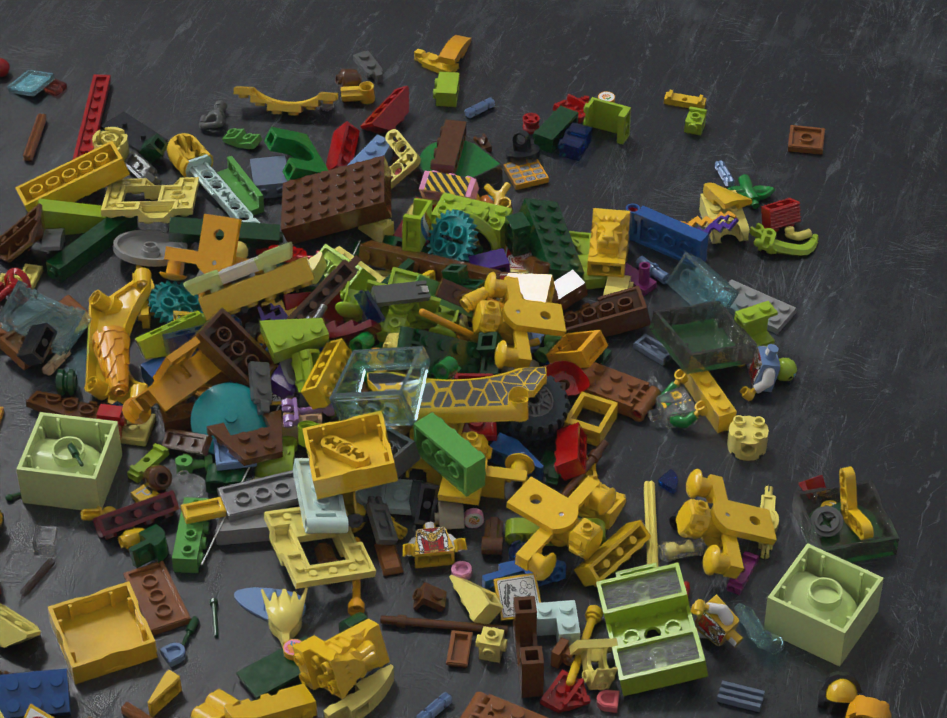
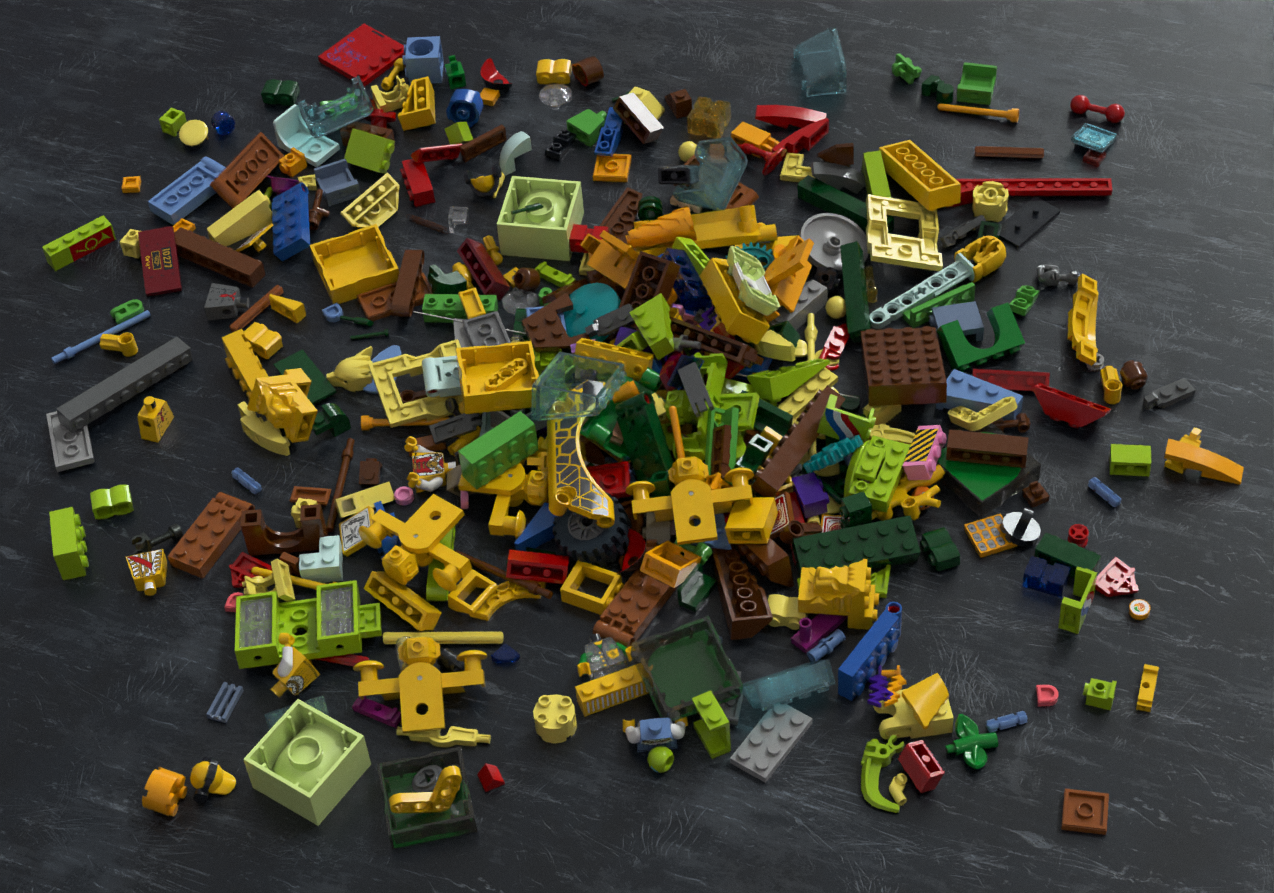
camera: 95 degrees right, 5 degrees up
(149, 576) = (407, 283): none -> reddish brown beam
(287, 648) = (318, 381): tile -> none
(470, 300) = (711, 458): yellow cone -> none
(547, 192) = (940, 549): none -> dark green brick
(695, 152) = (1046, 695): none -> coral tile

